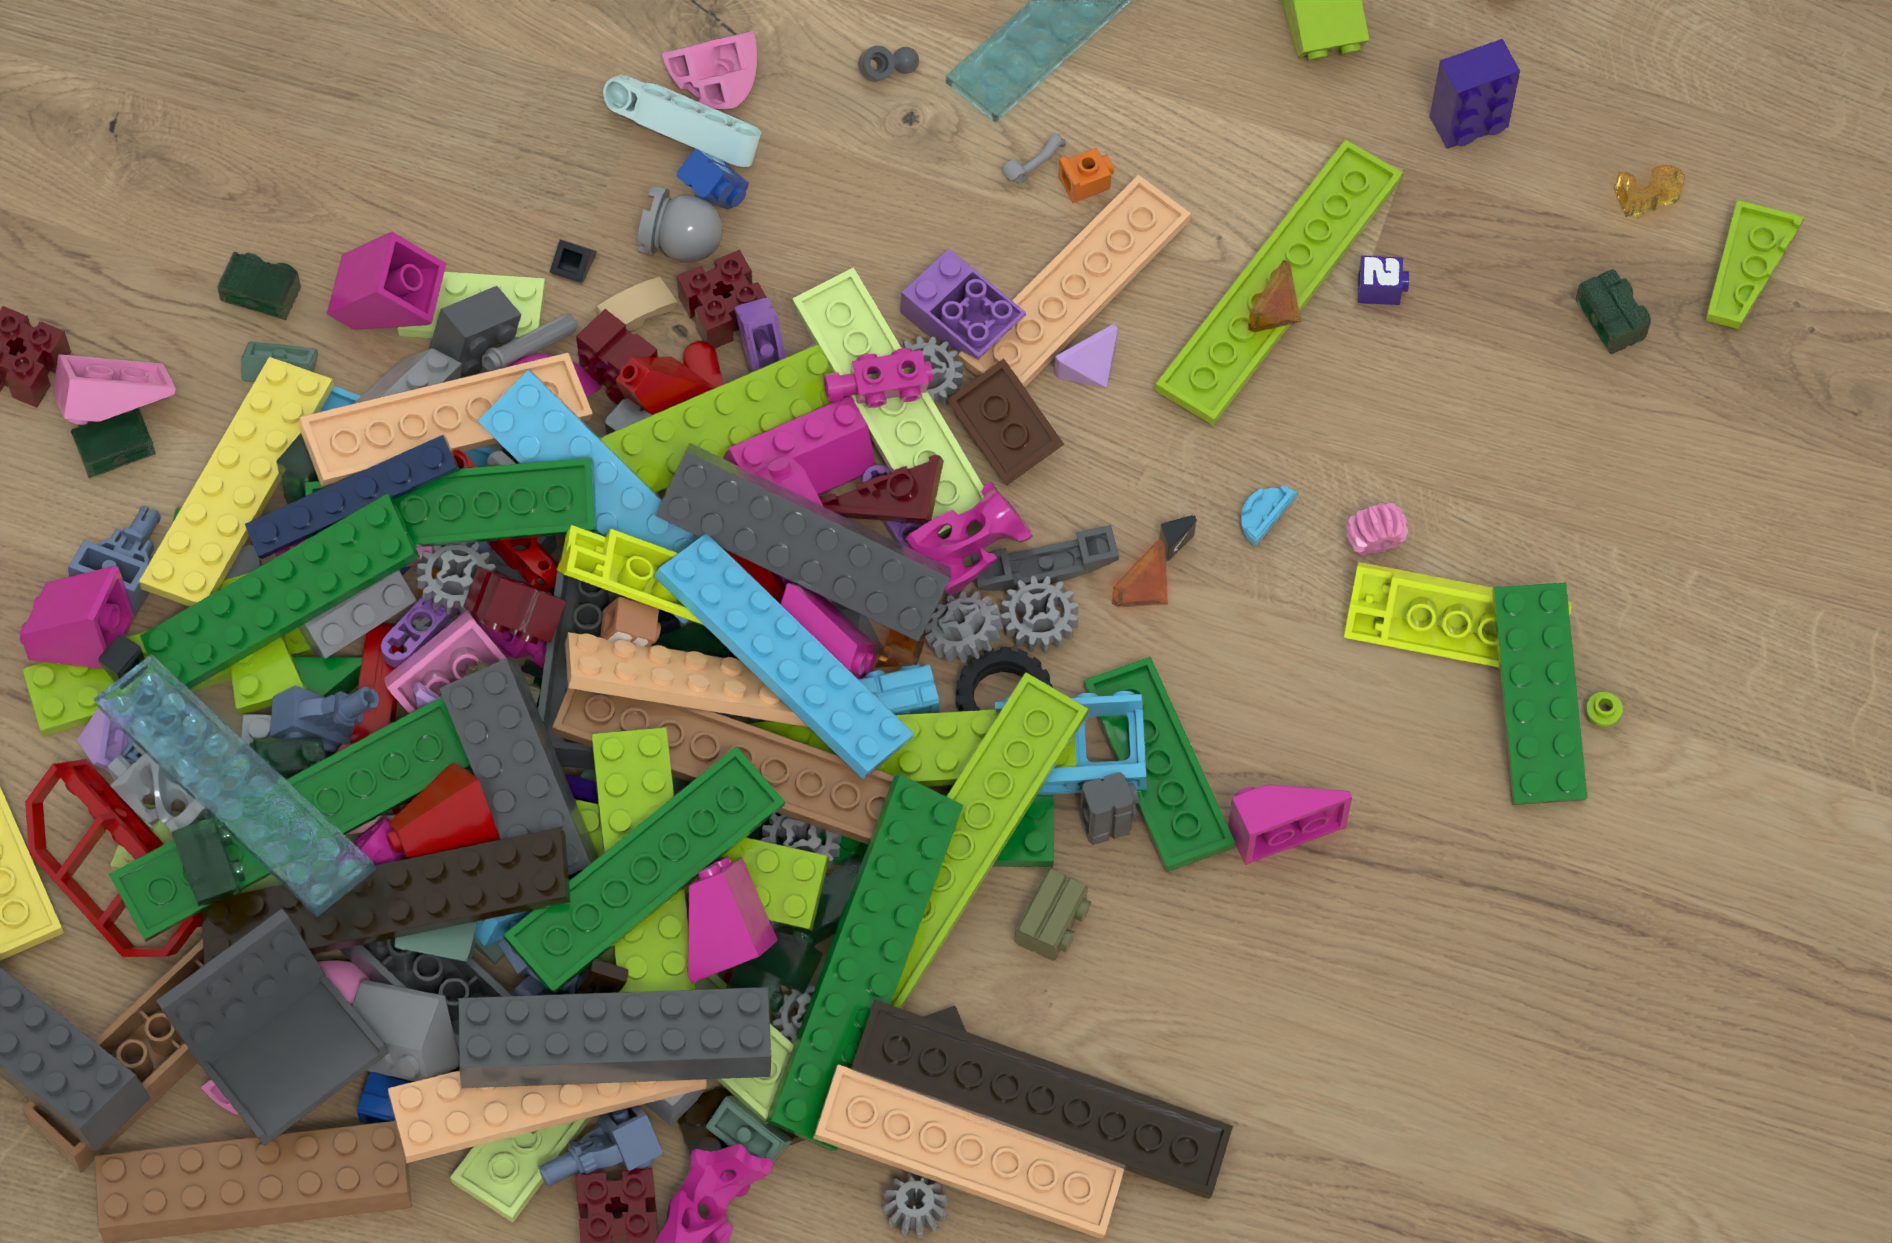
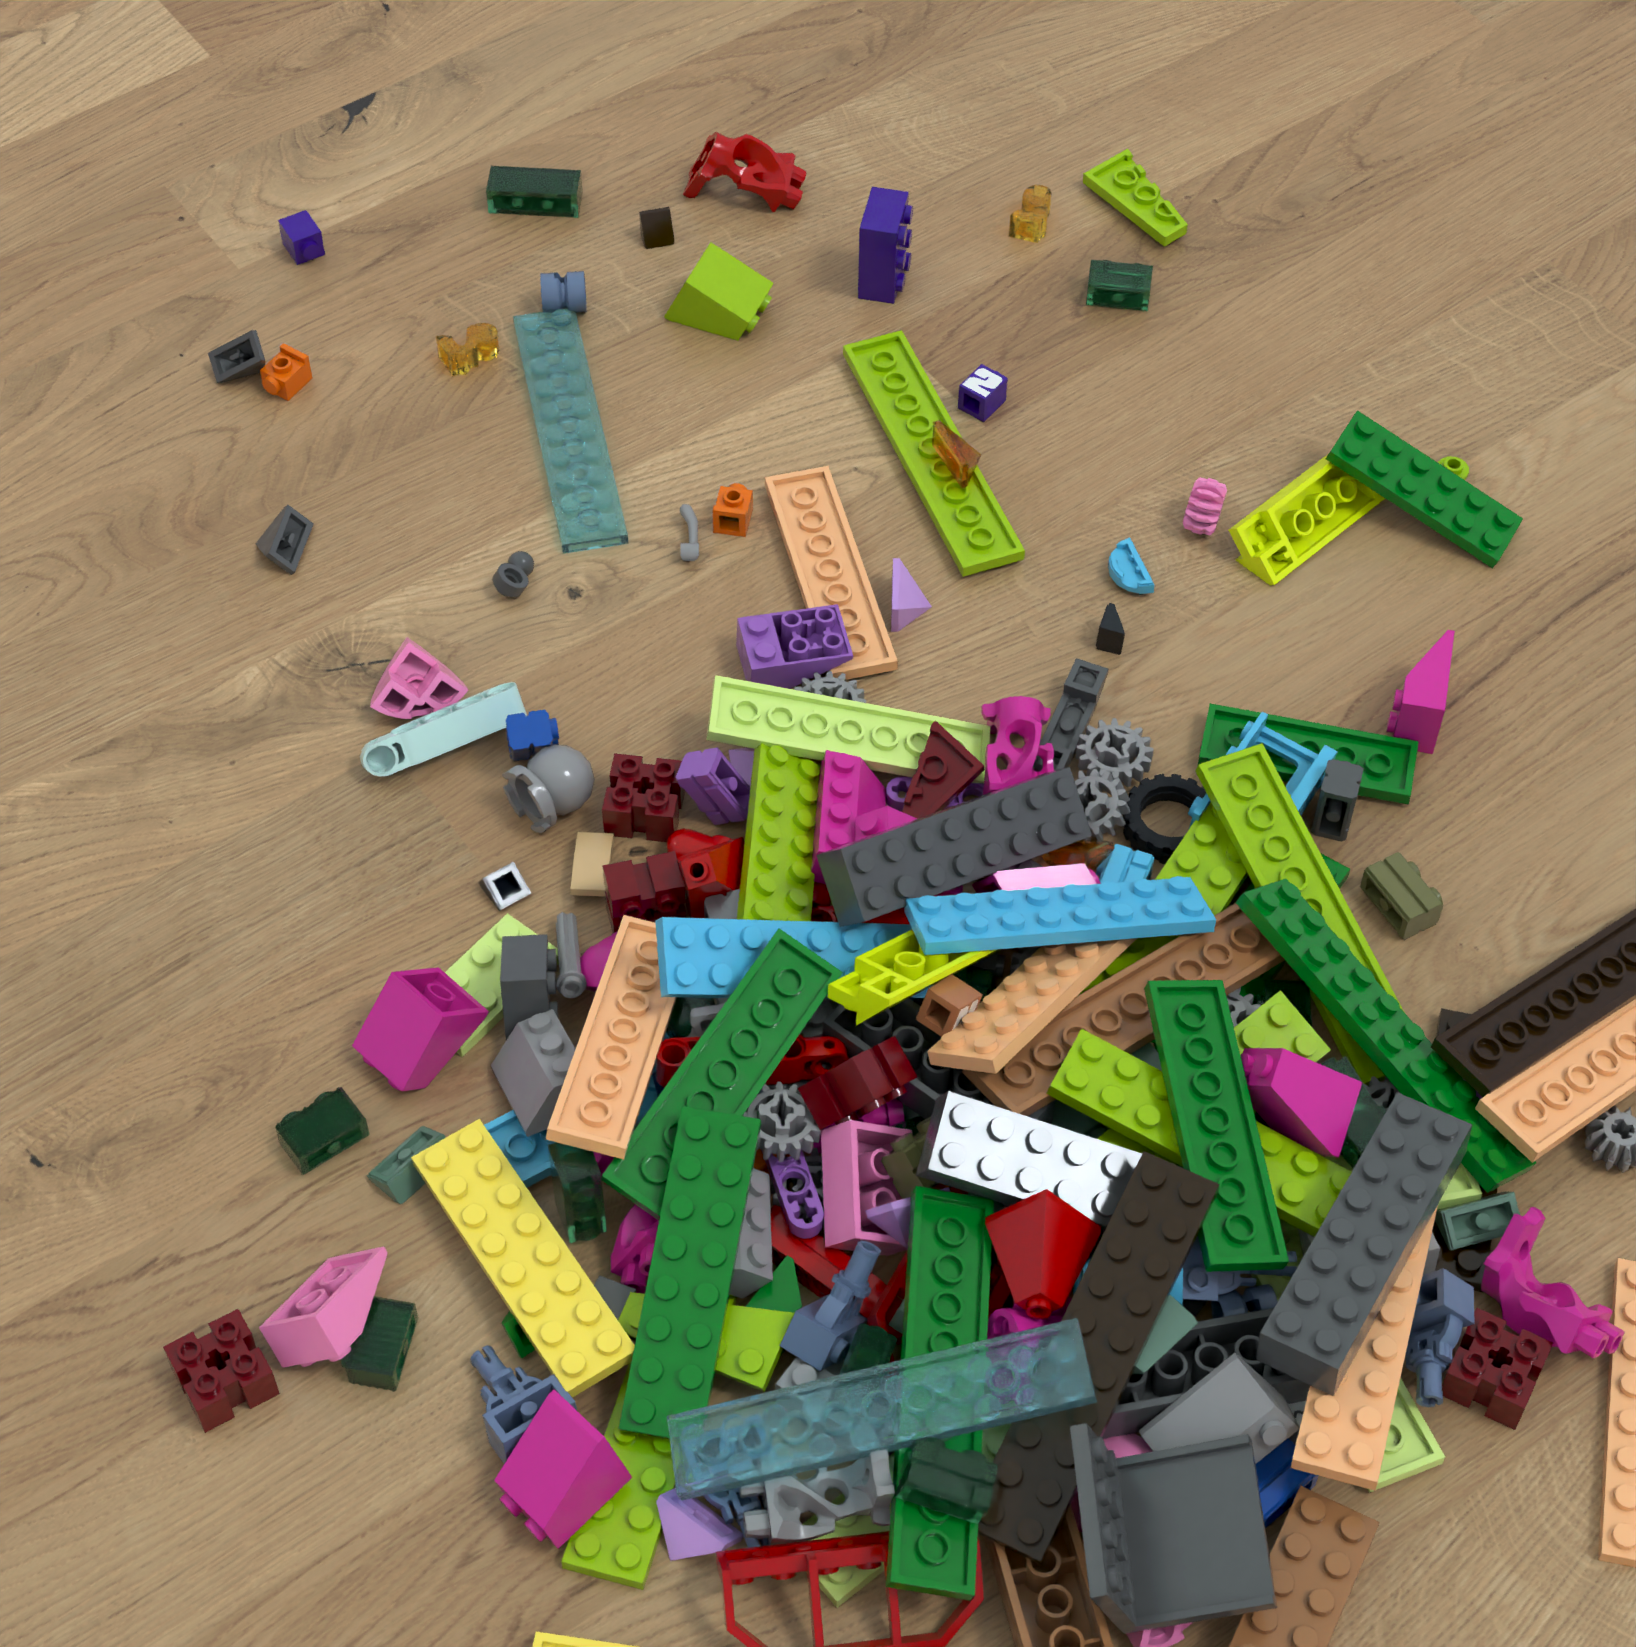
camera: 55 degrees left, 10 degrees down
(120, 657) = (638, 1455): black slope -> none
(331, 504) = (651, 1145): dark blue plate -> none
(601, 978) = (1293, 1222): dark brown bracket -> none
(890, 384) = (831, 719): dark pink brick -> none
(1005, 421) = (922, 675): reddish brown plate -> none
(1144, 581) = (1132, 670): clear orange slope -> none

